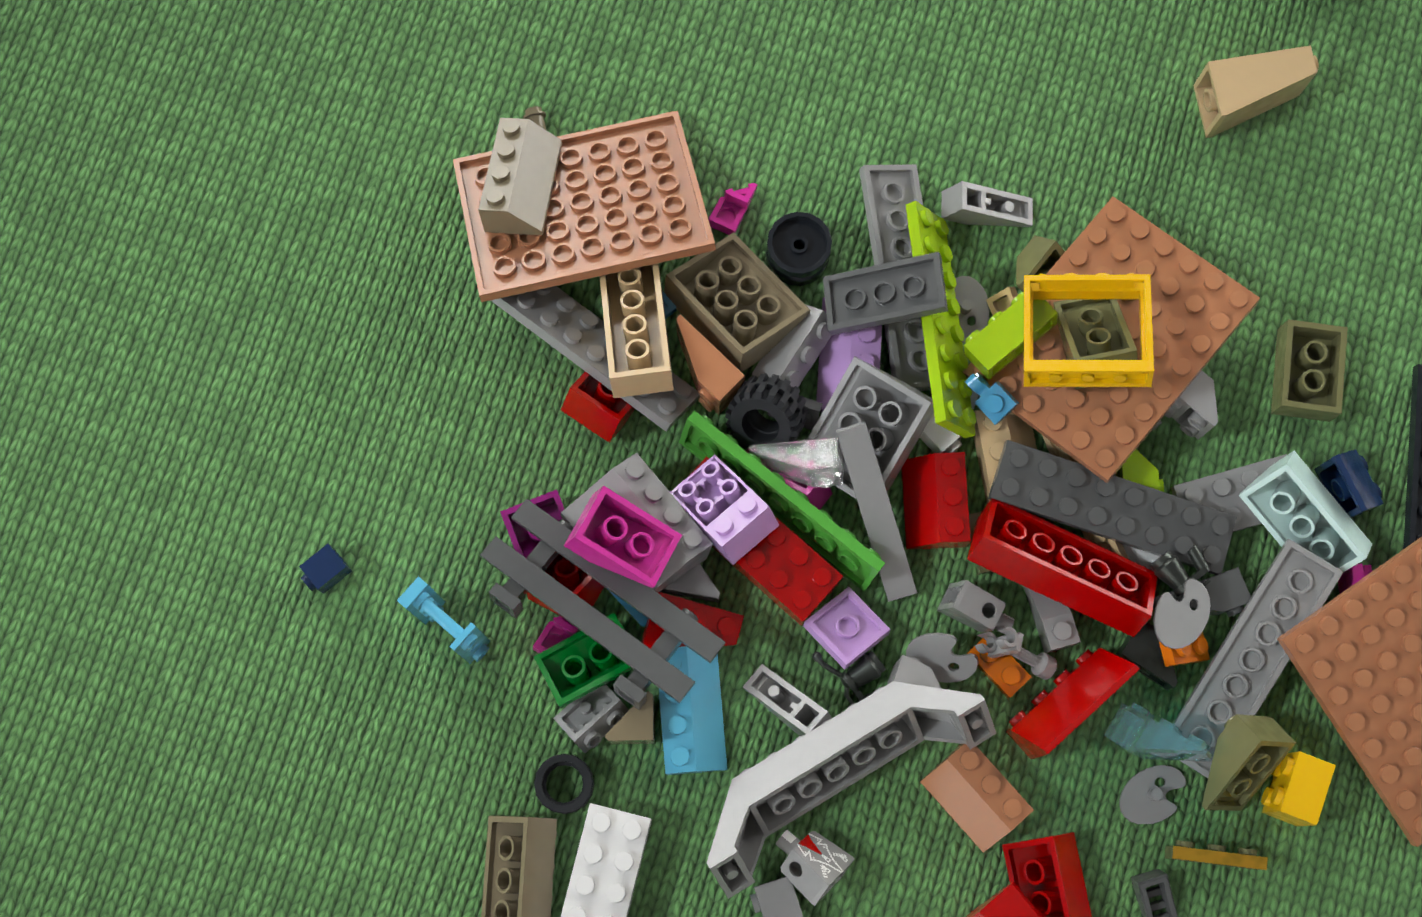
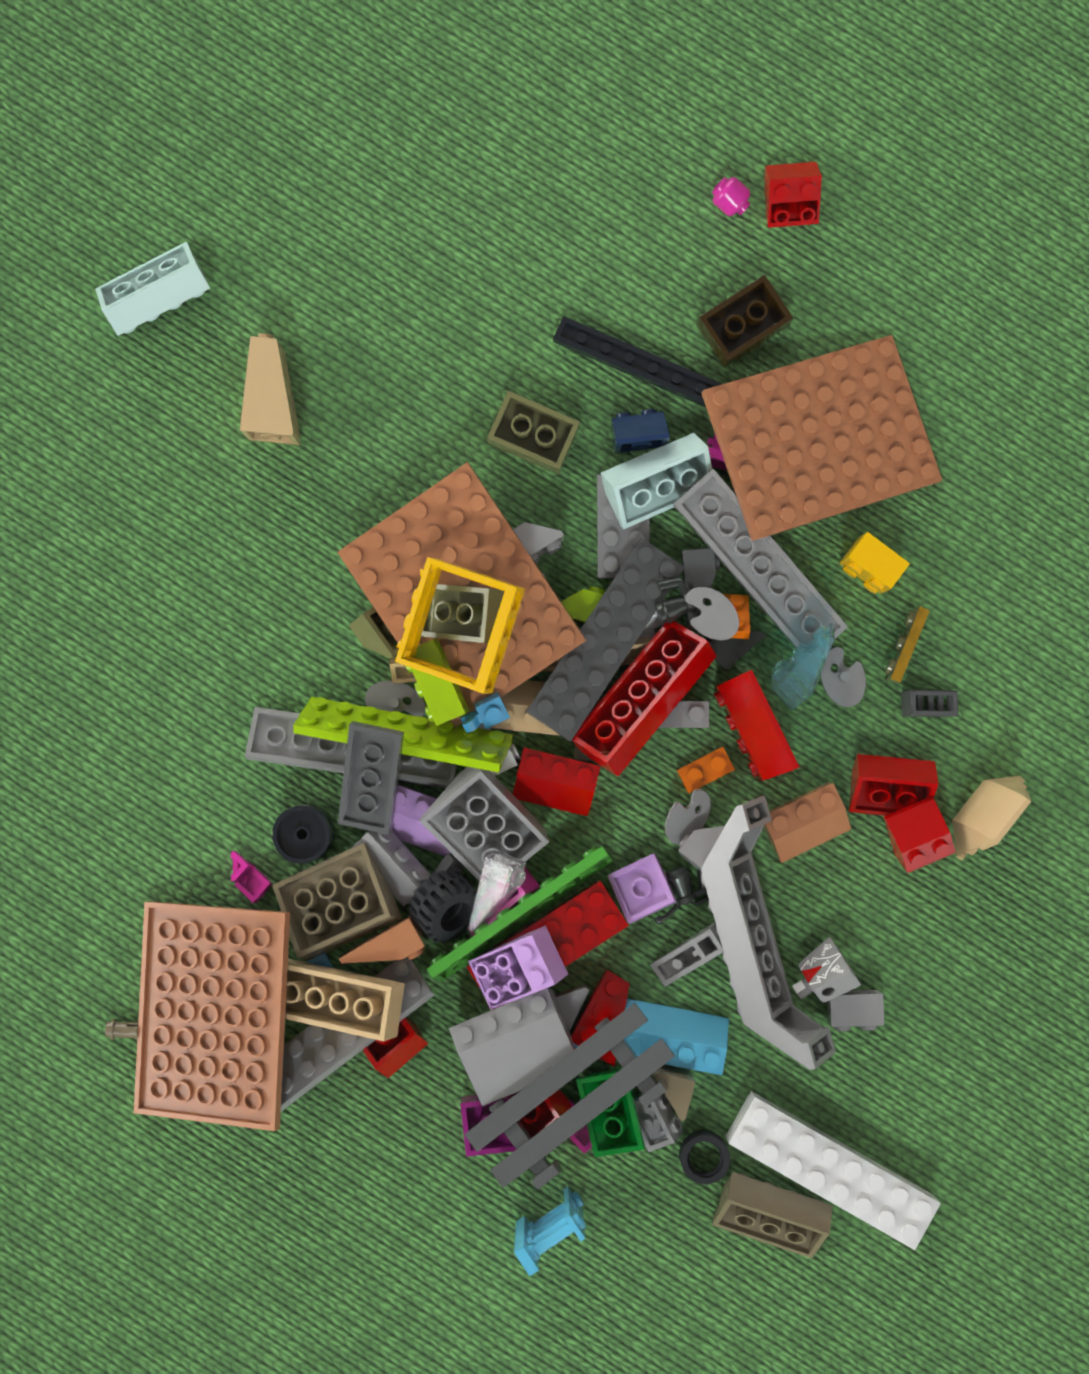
camera: 75 degrees left, 10 degrees up
(324, 569) = (470, 1313): dark blue brick -> none
(519, 178) = (172, 1063): slope -> none
(622, 538) = (524, 1065): dark pink slope -> none
(876, 510) = (553, 838): light grey tile -> none
(974, 607) = (649, 783): light grey torso -> none
(983, 205) = (310, 657): light grey slope -> none
(1010, 644) = (695, 761): light grey bar -> none
(1244, 760) = (840, 600): olive slope -> none

